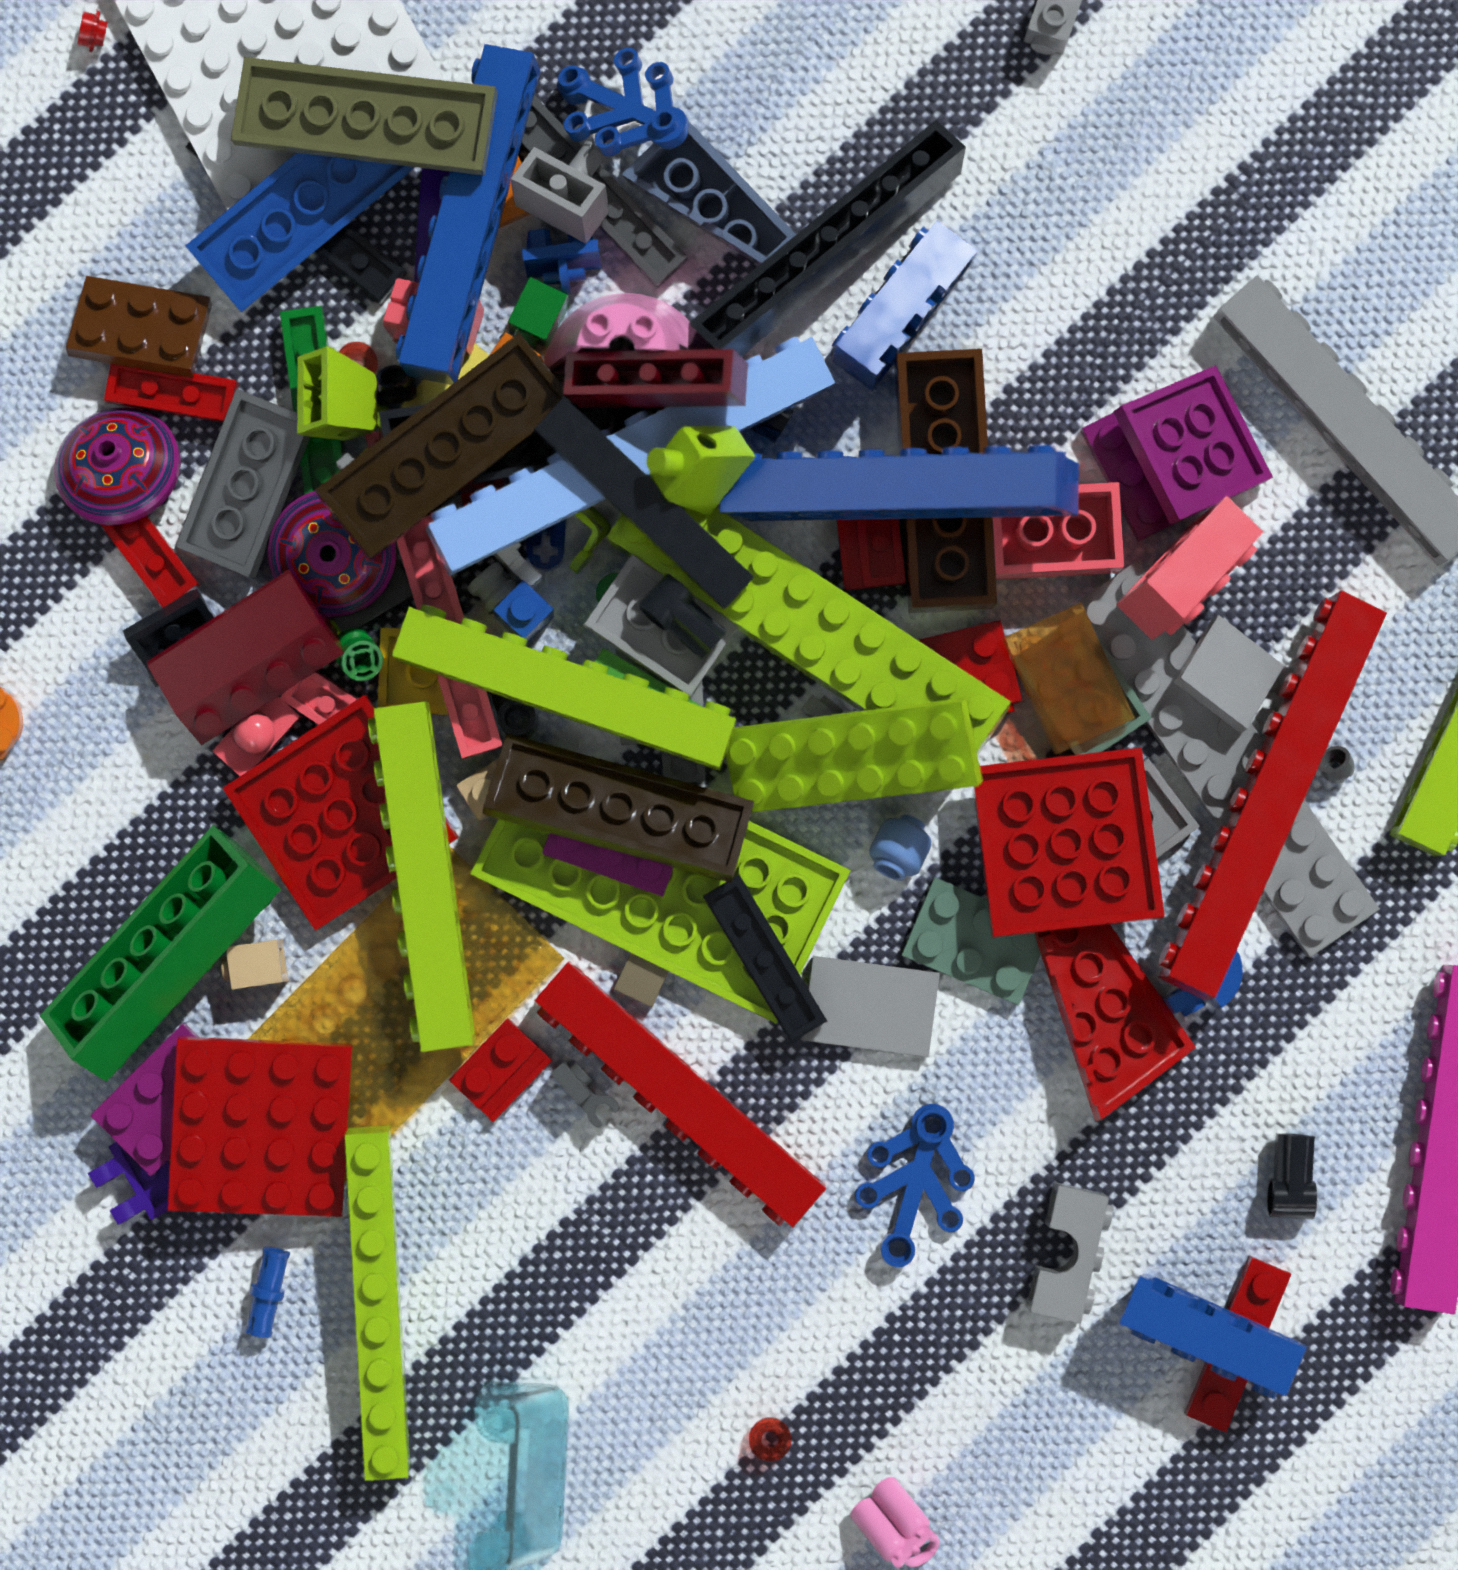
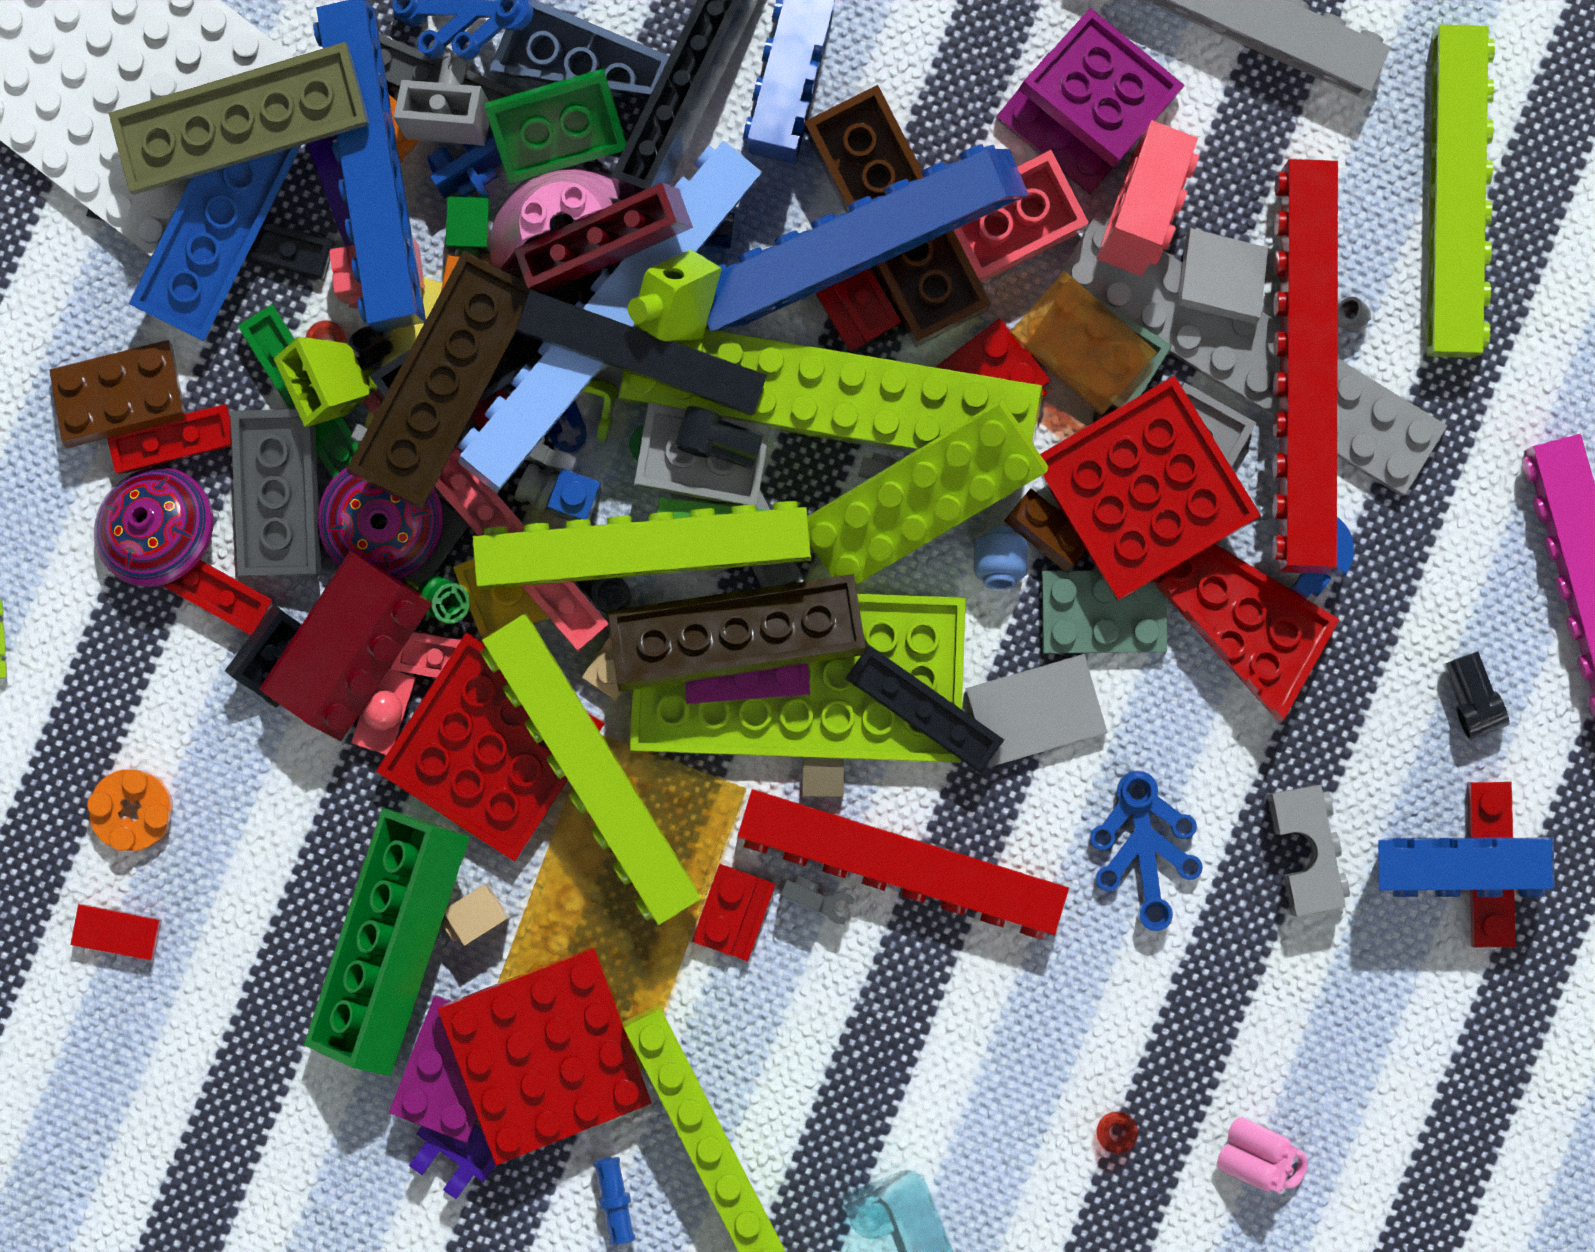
camera: 25 degrees left, 0 degrees up
(660, 254) = (556, 126): none -> green plate
(955, 839) = (1046, 530): none -> reddish brown plate

